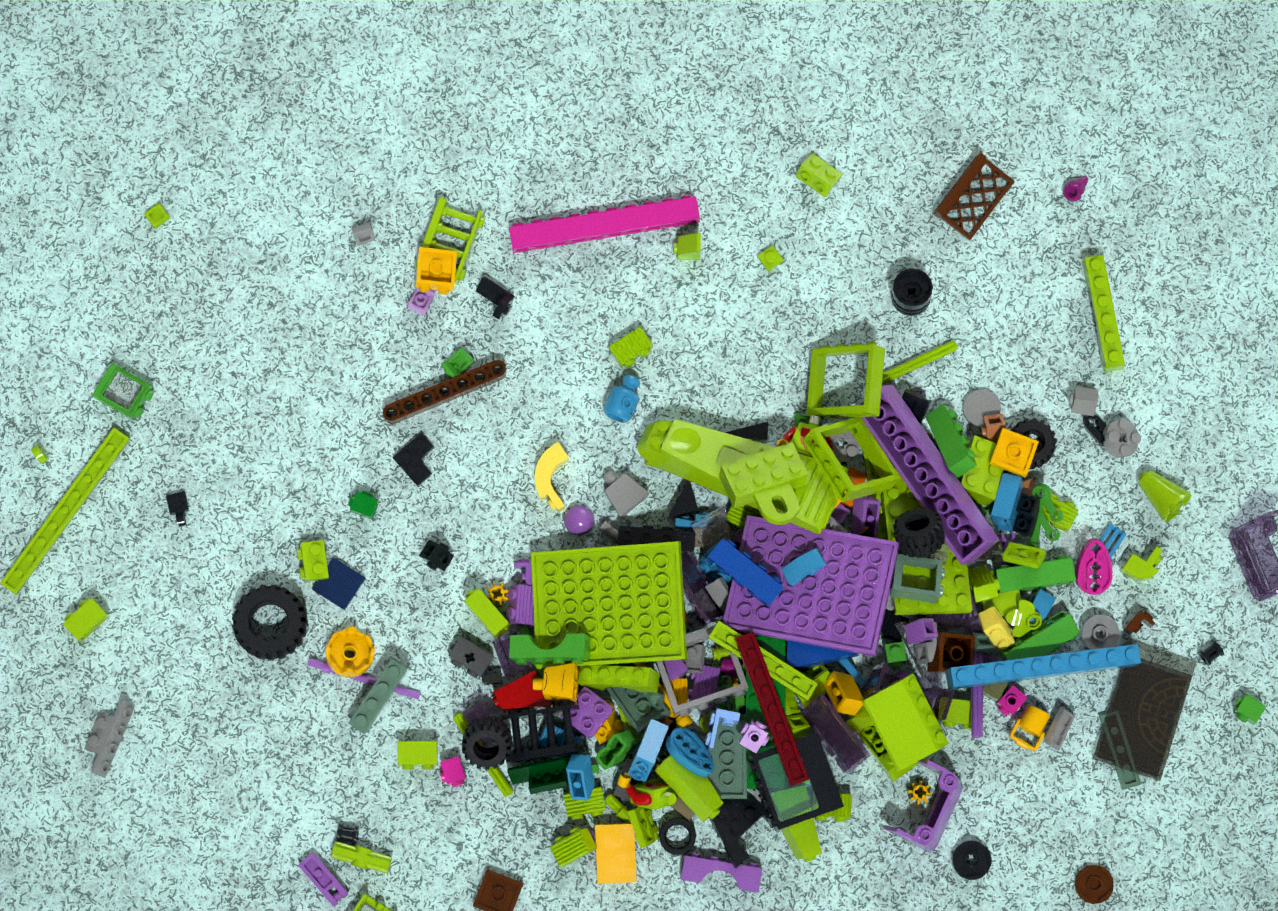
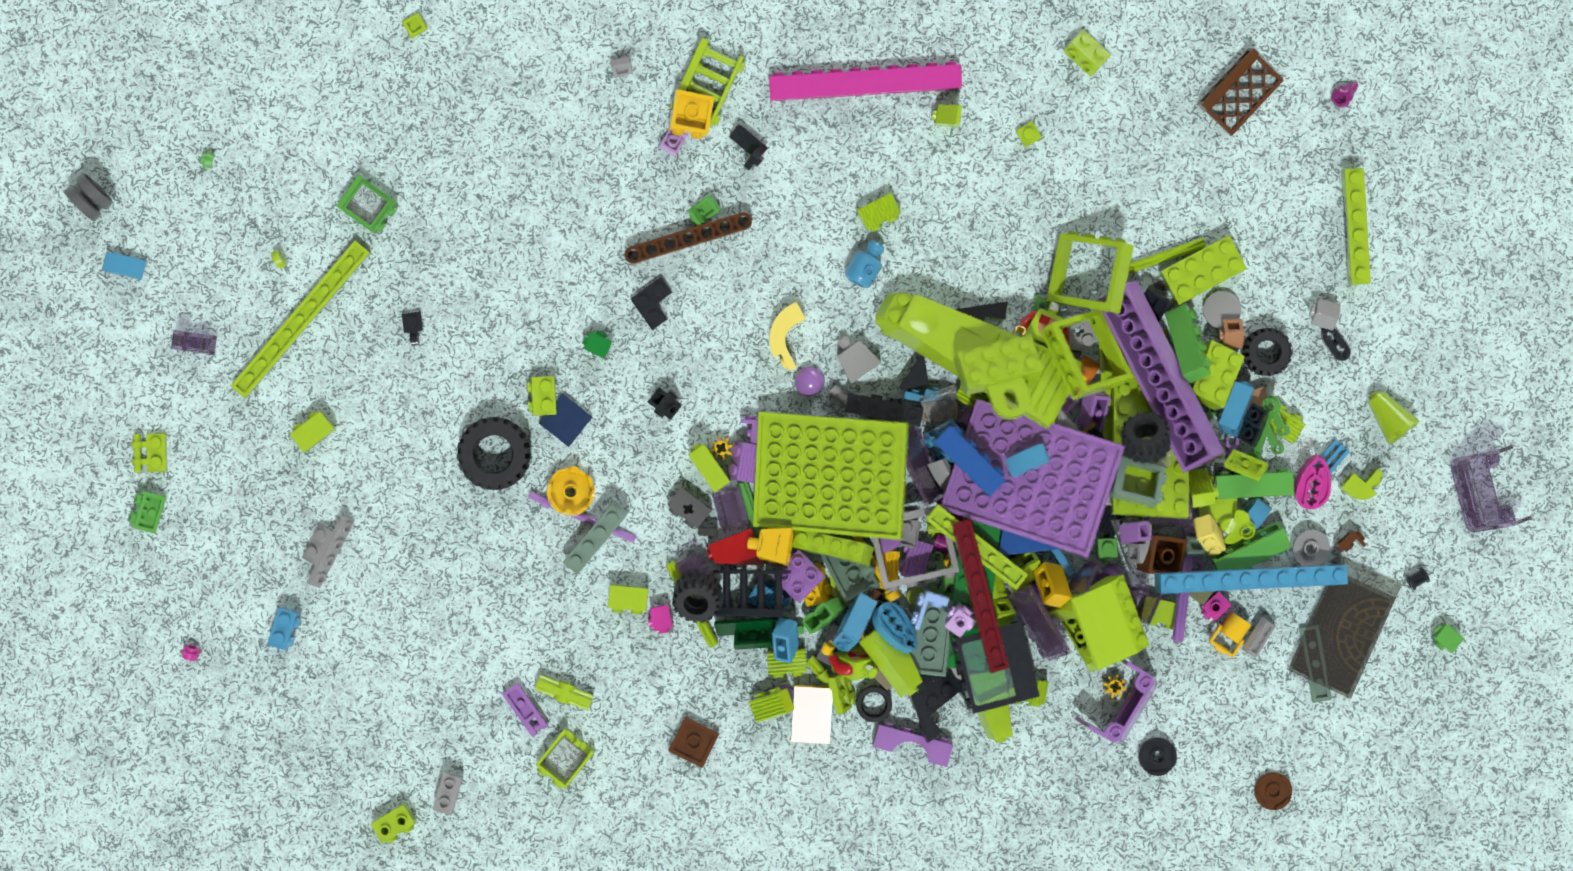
camera: 10 degrees right, 10 degrees up
(71, 821) = (283, 628): none -> dark azure brick
(347, 833) = (552, 668): black bush -> none
(573, 648) = (791, 513): bright green arch -> none
(911, 282) = (1170, 175): black wheel -> none
(957, 370) = (1202, 270): none -> lime brick
(1014, 452) = (1249, 362): yellow plate -> none
(1130, 438) = (1366, 355): light grey plate -> none

